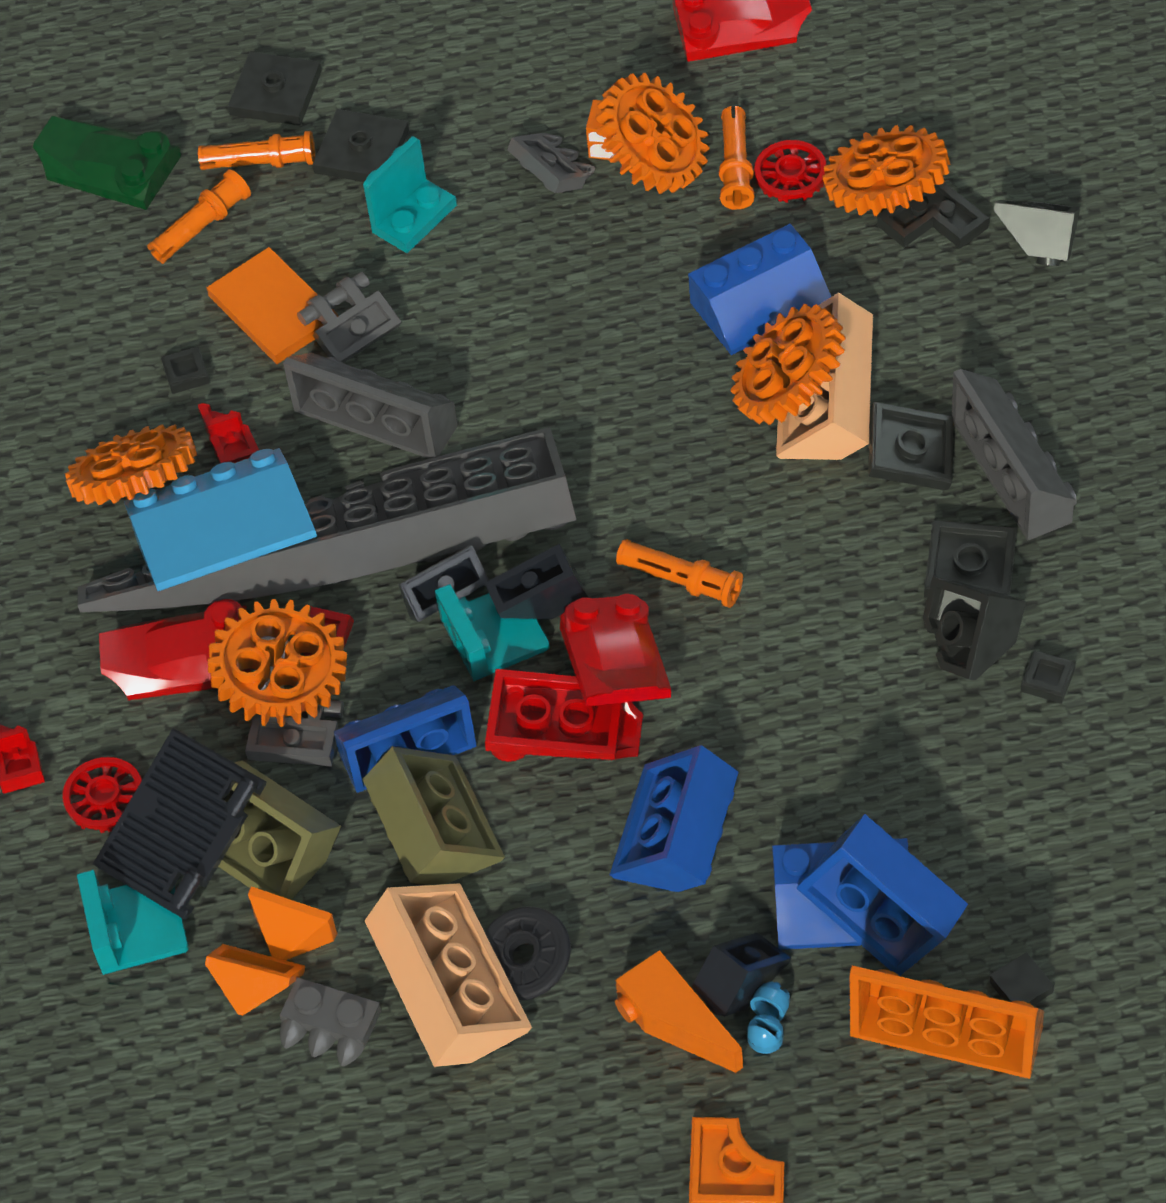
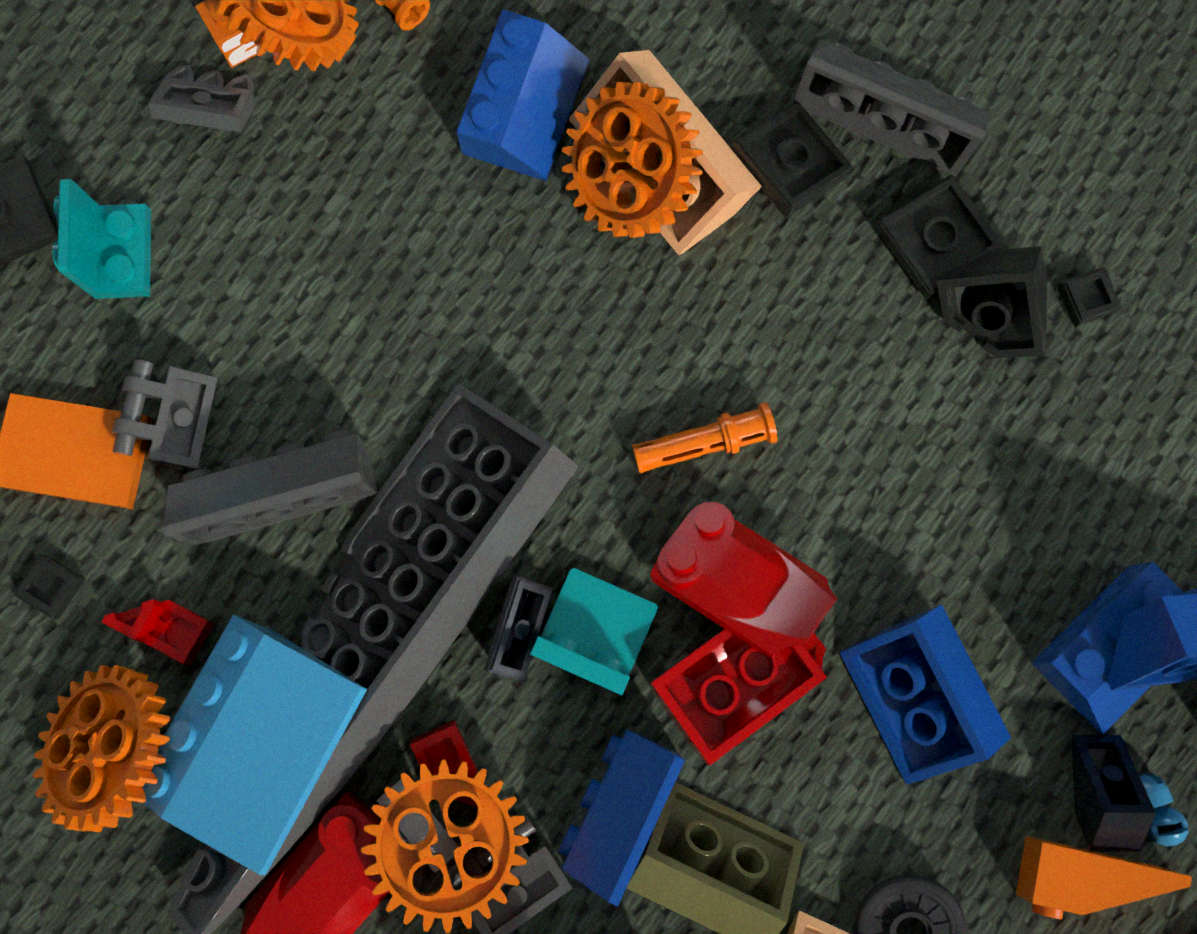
camera: 50 degrees left, 25 degrees up
(537, 587) = (606, 566): black slope -> none

